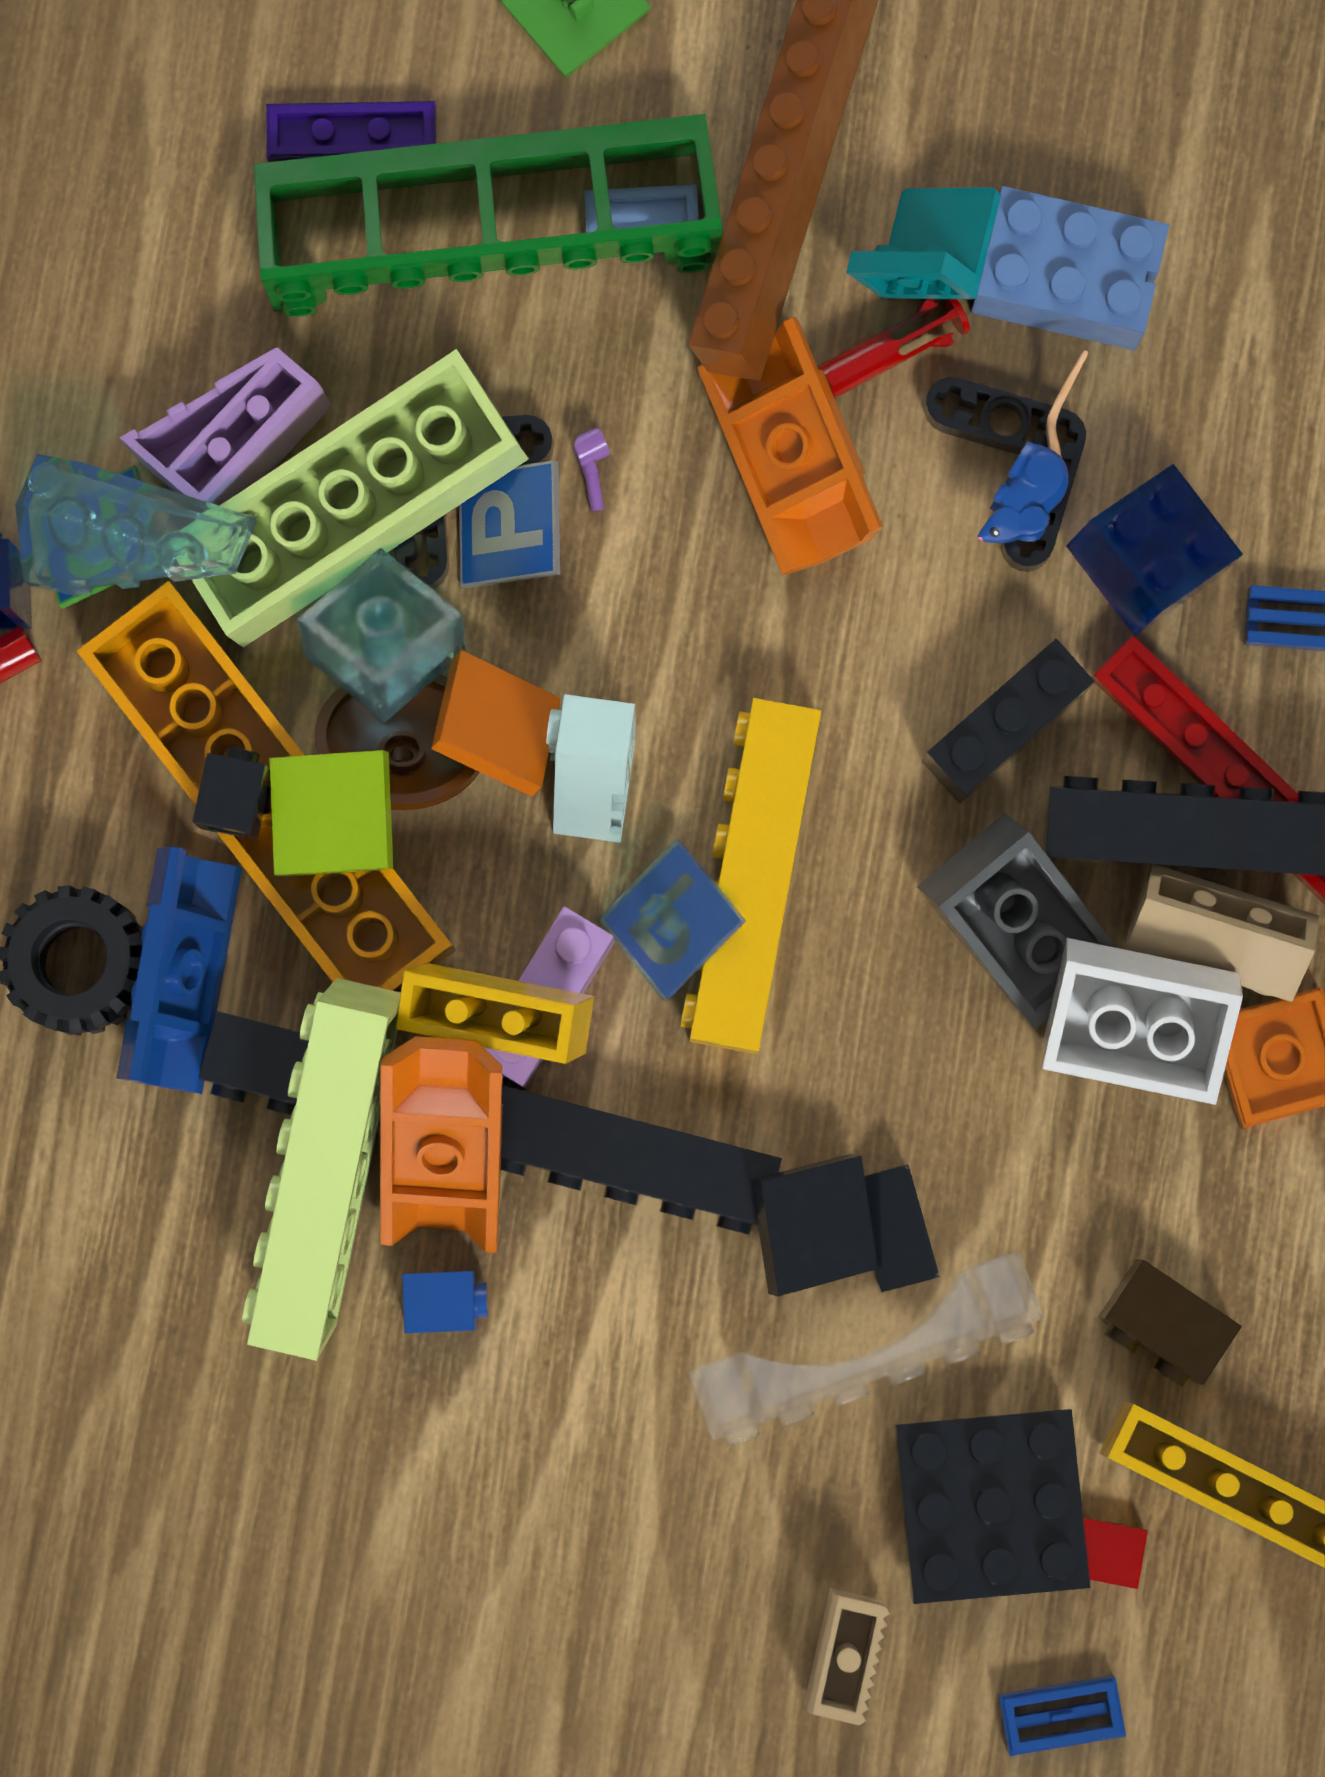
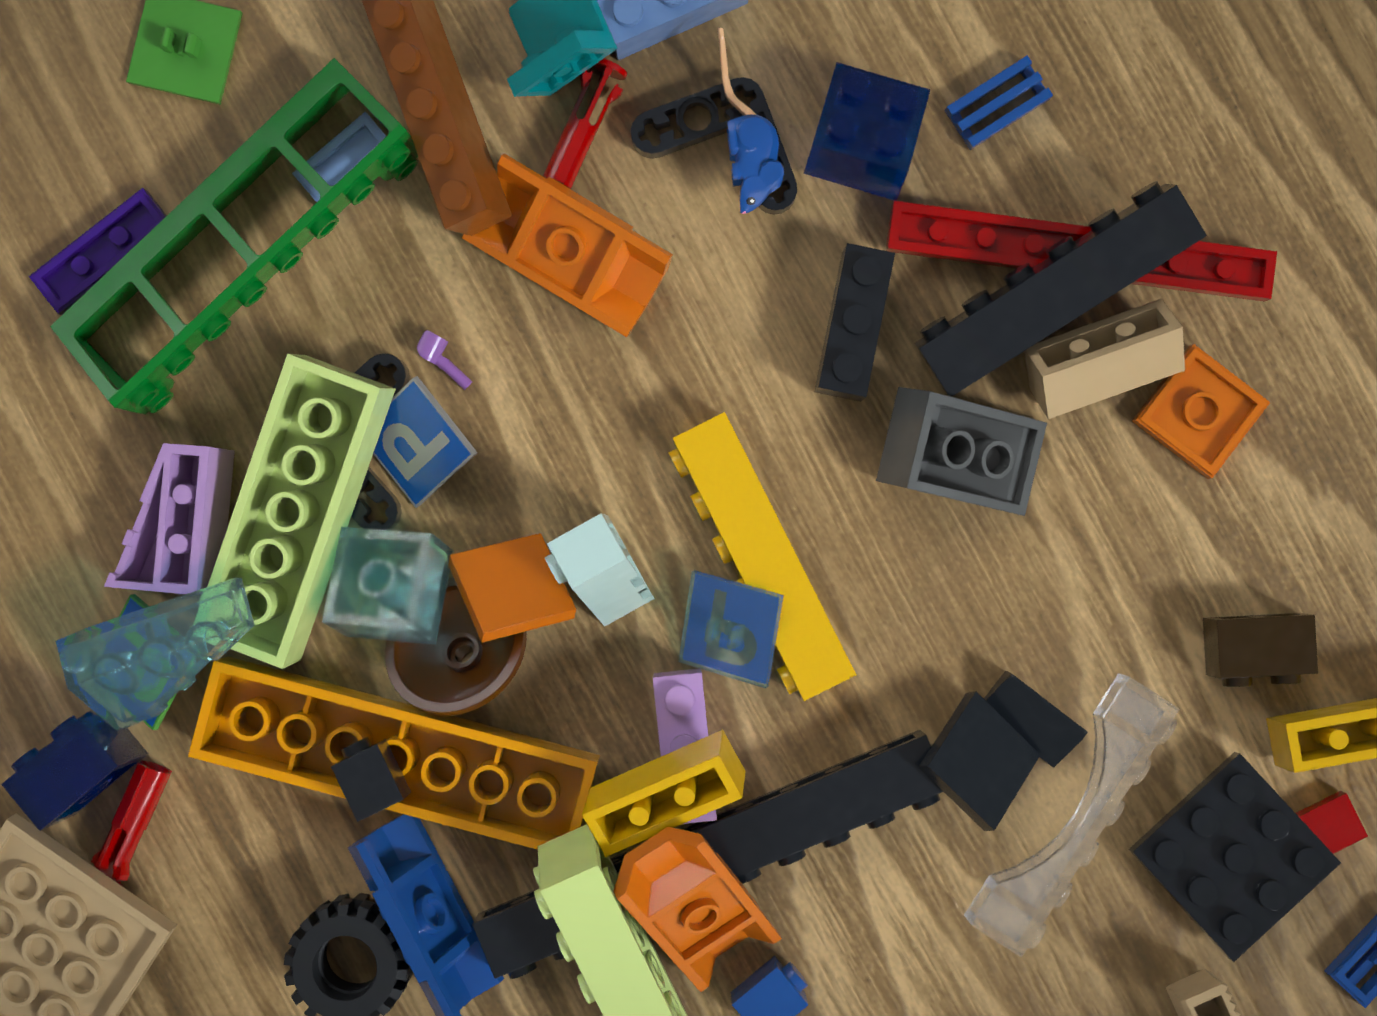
camera: 40 degrees left, 5 degrees up
(331, 813) = (448, 739): lime tile -> none
(1141, 1021) = (1098, 460): white brick -> none

